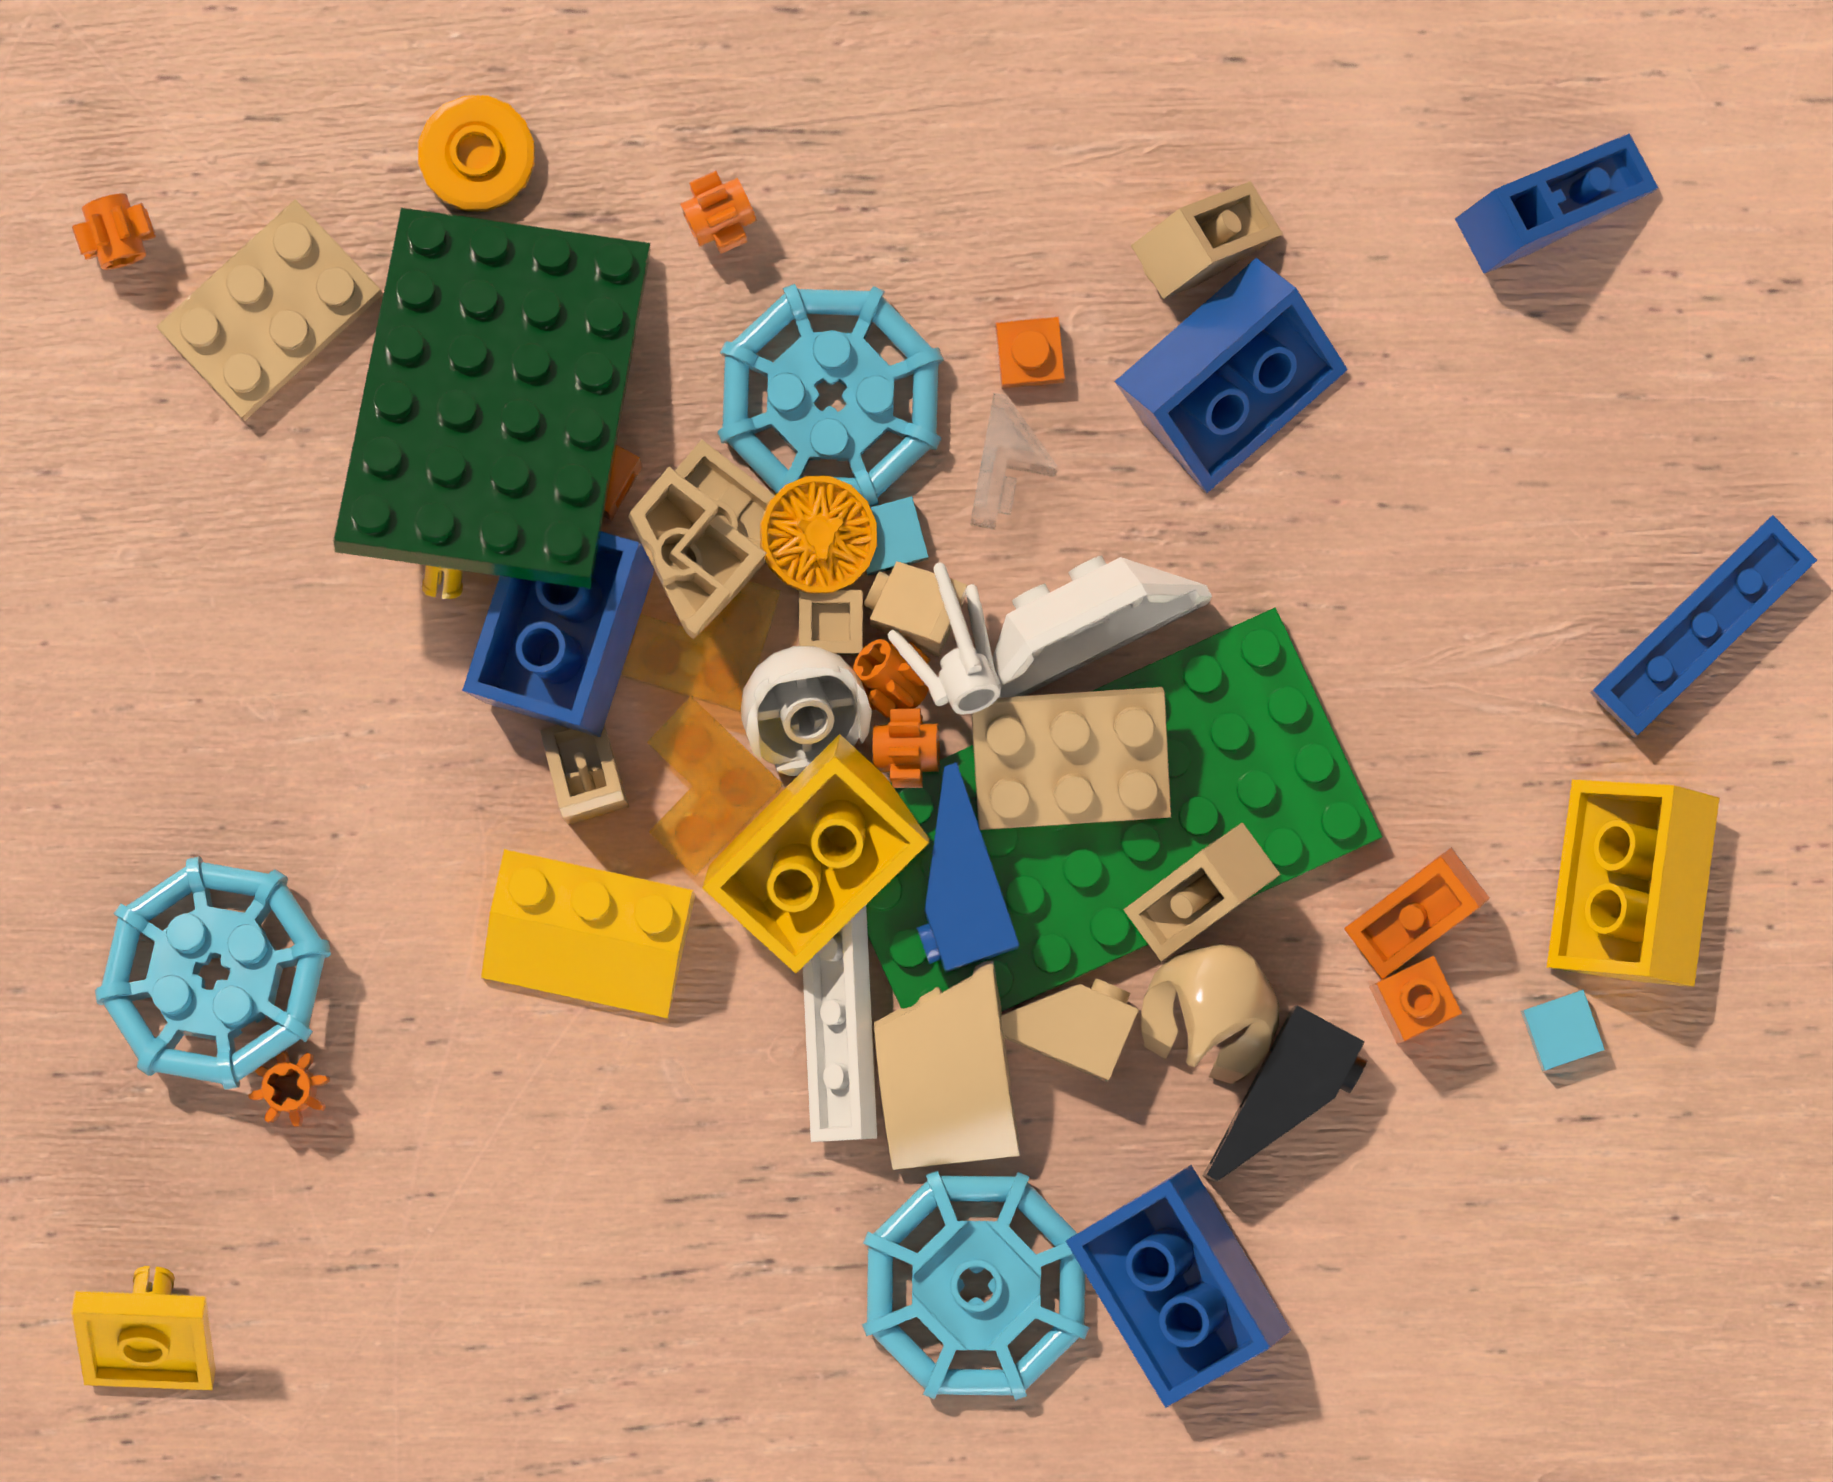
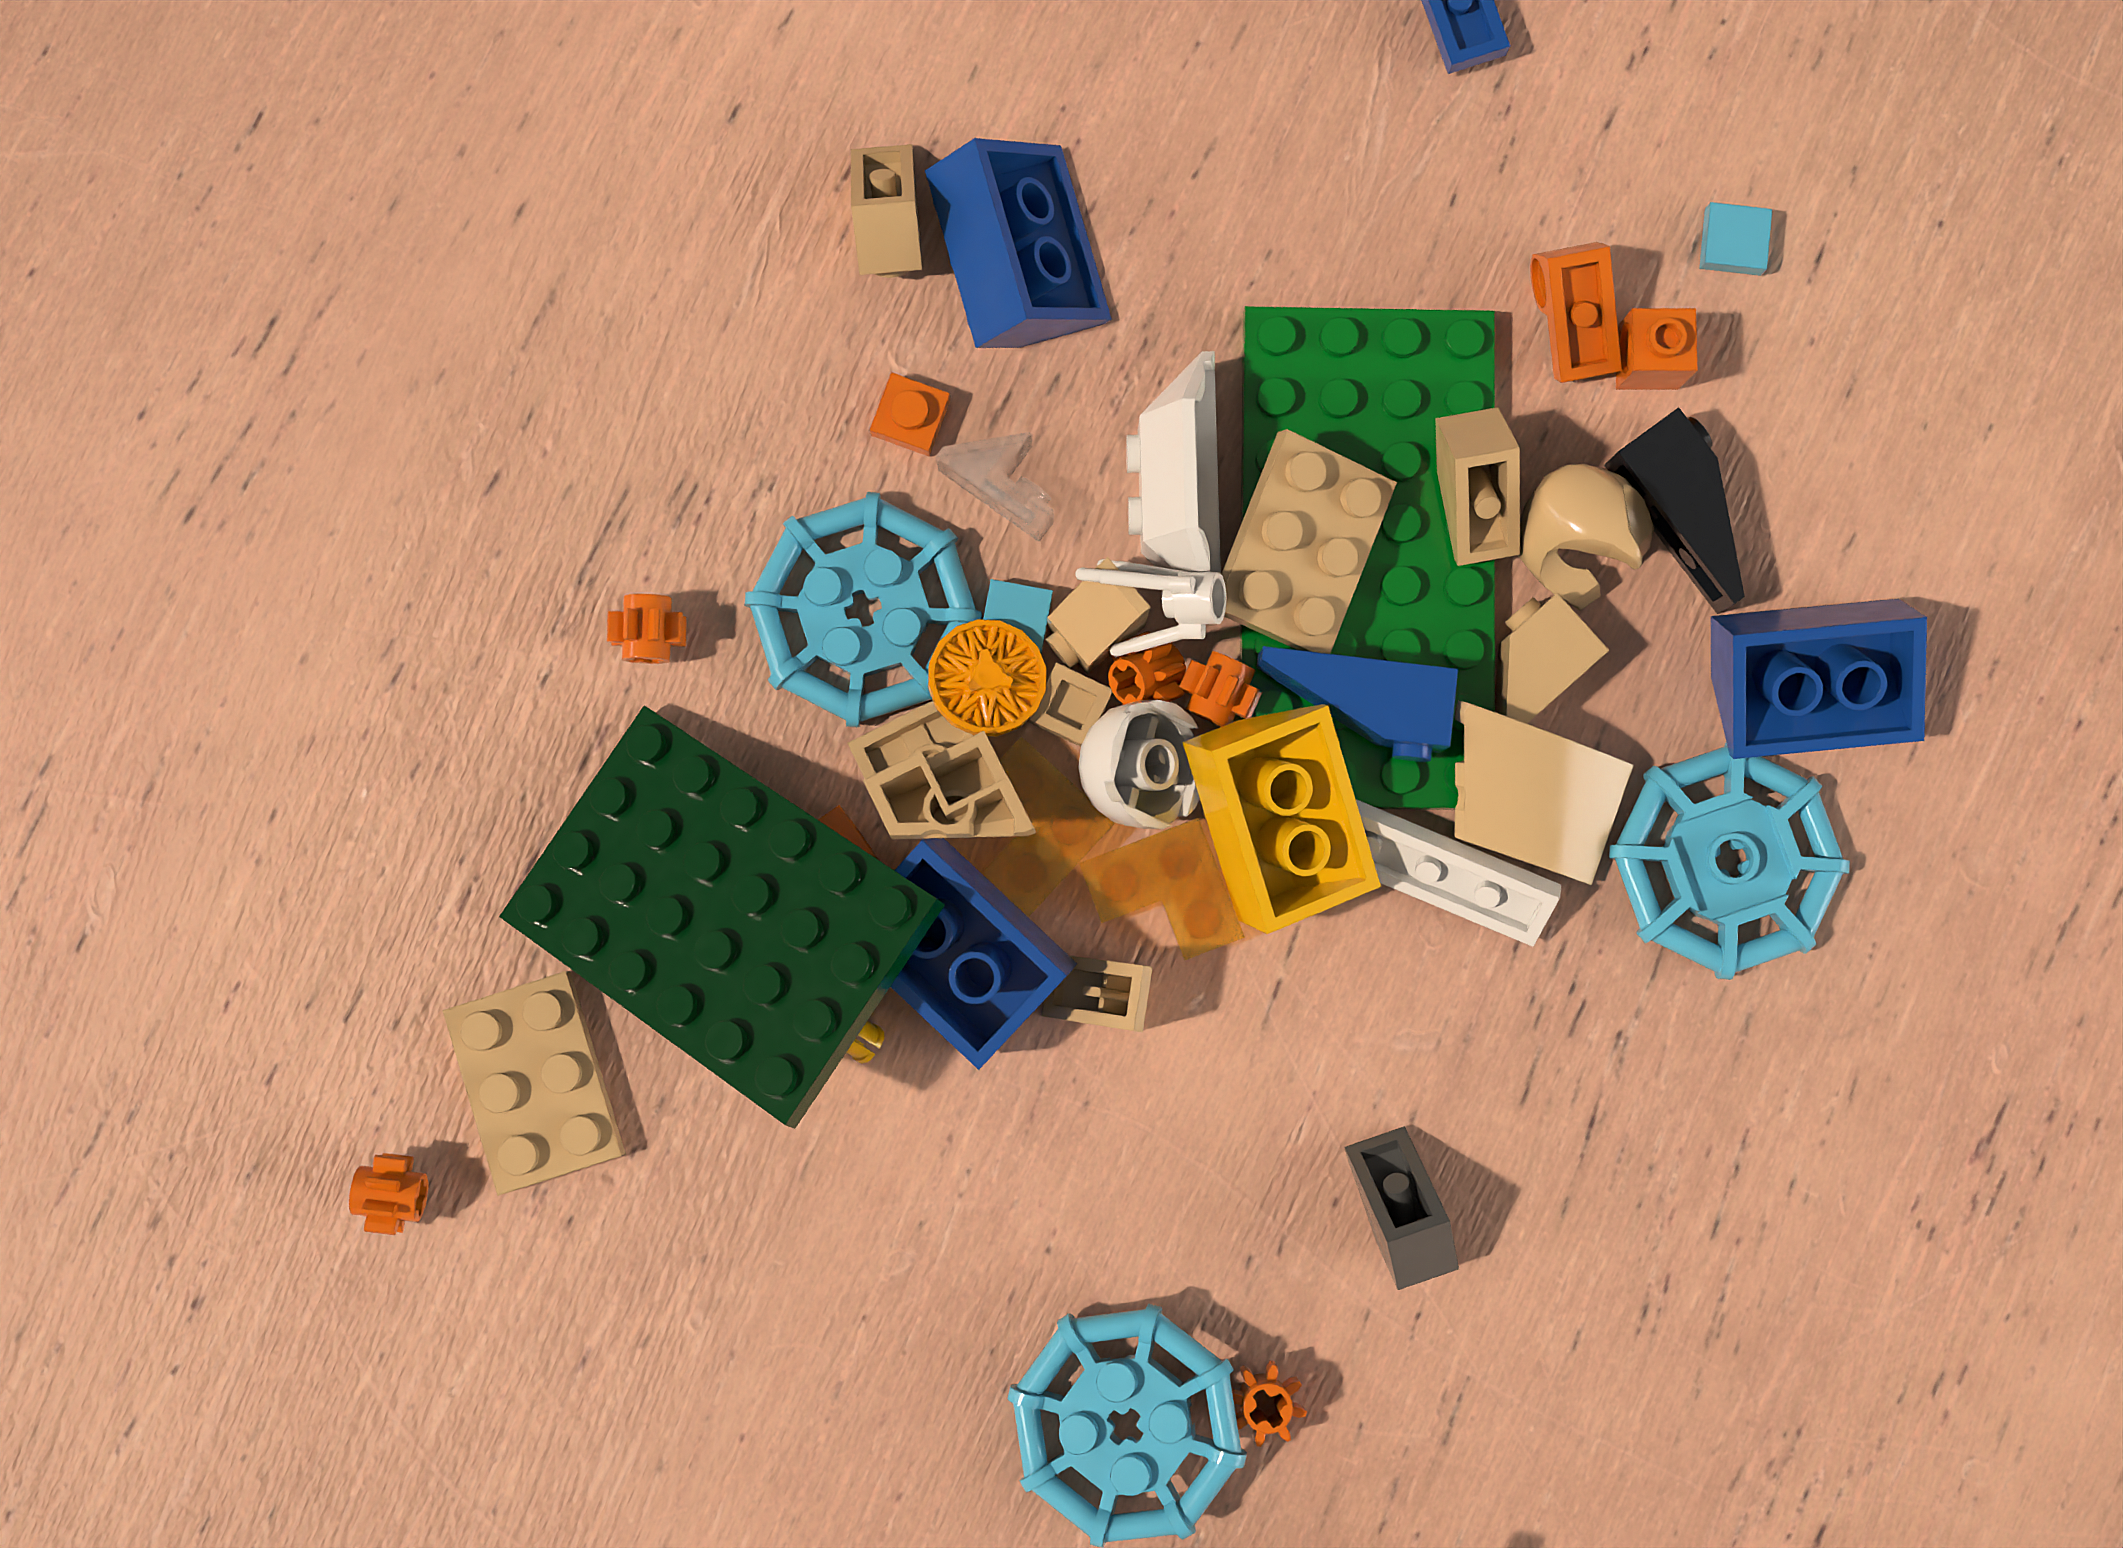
camera: 65 degrees left, 0 degrees up
(476, 153) = (482, 824): light orange wheel -> none
(518, 1129) = (1402, 1208): none -> dark grey slope
(586, 933) = (1250, 1059): yellow slope -> none
(1633, 881) = (1636, 113): yellow slope -> none

